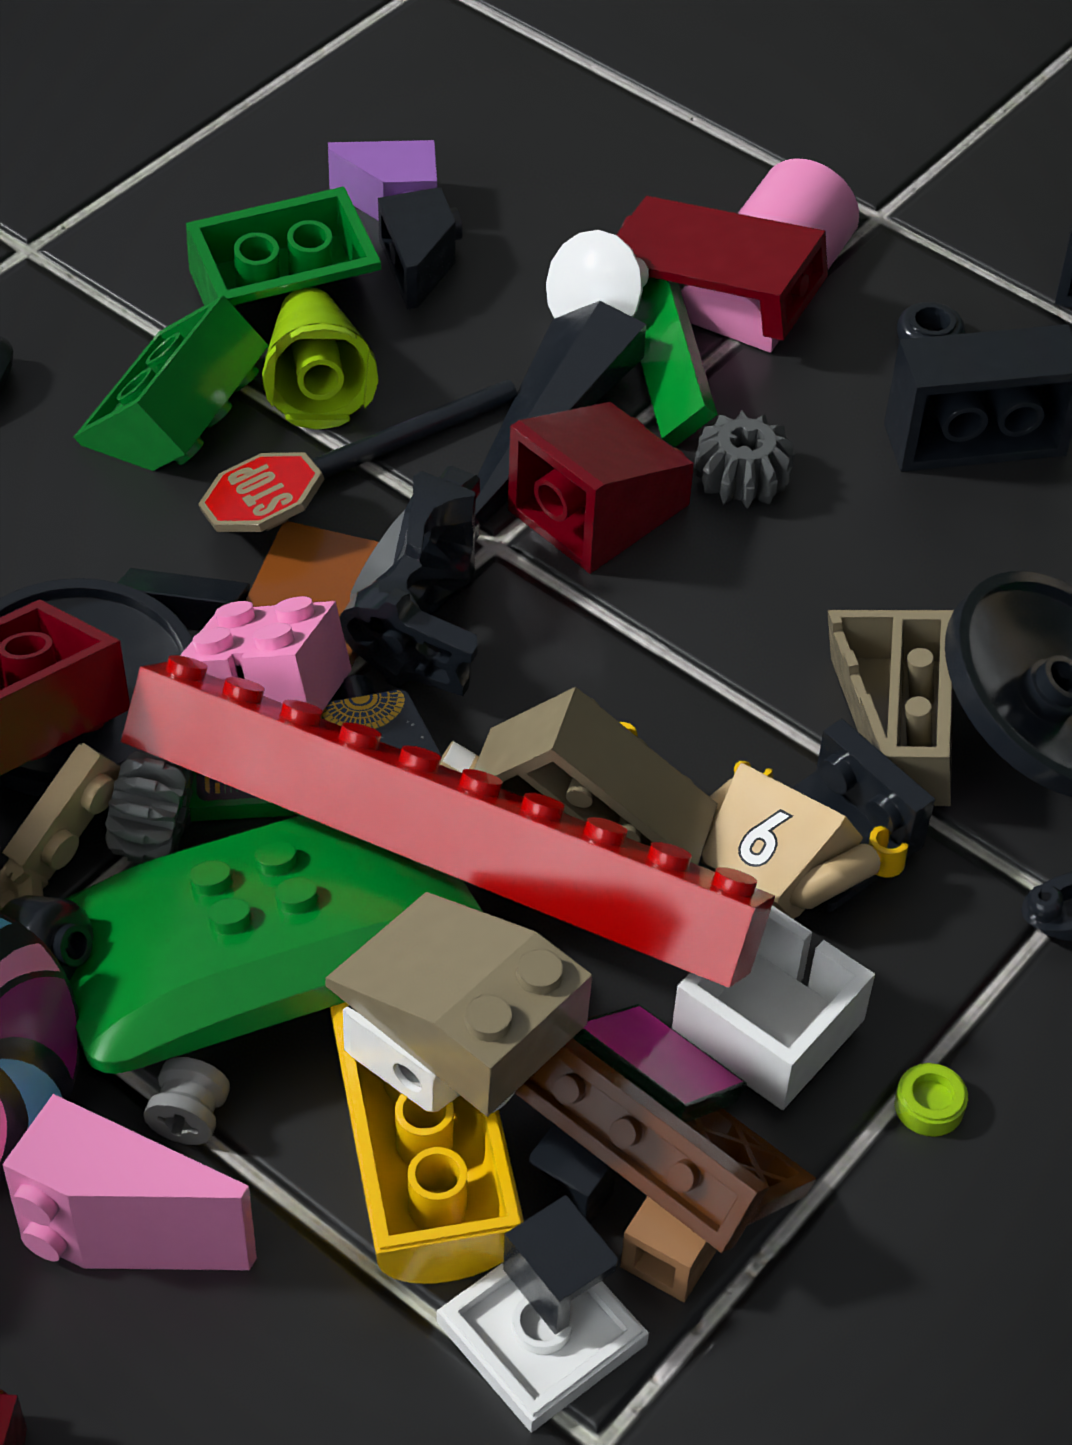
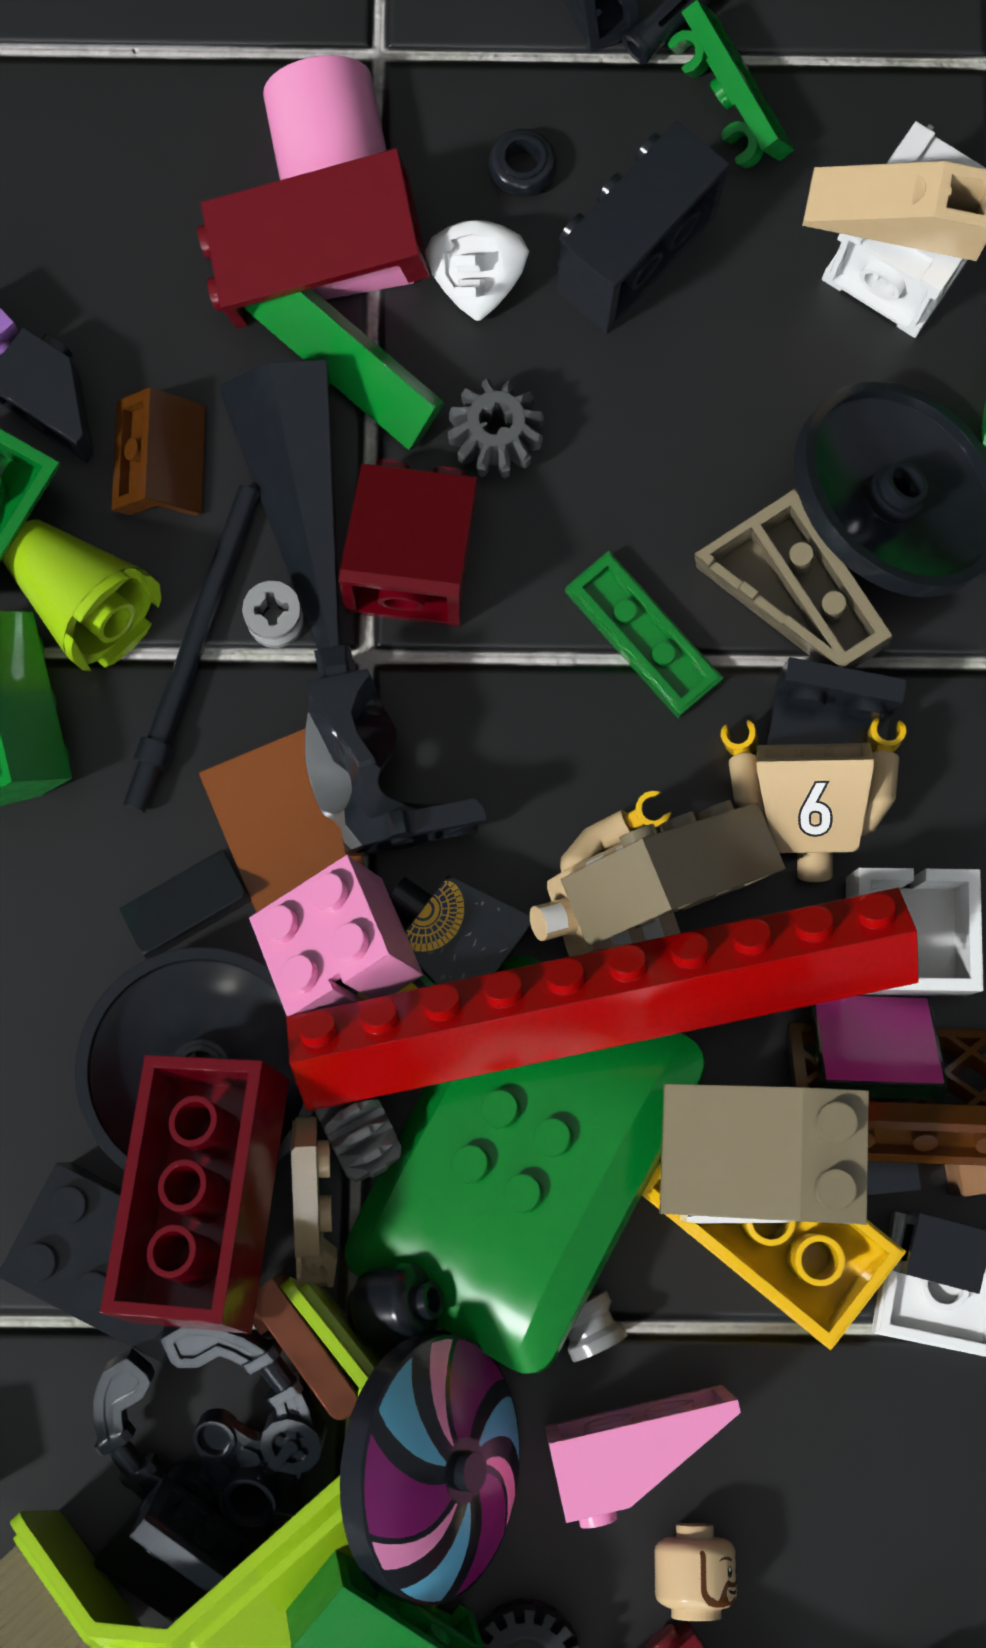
camera: 40 degrees left, 30 degrees up
(72, 1364) = (695, 1573): none -> tan head
(261, 492) = (170, 772): piece -> none
(447, 448) = (277, 626): none -> light grey wheel
(467, 326) = (158, 453): none -> reddish brown panel
(595, 269) = (236, 332): white dish -> none
(739, 670) = (643, 634): none -> green tile
(829, 353) = (476, 264): none -> white piece

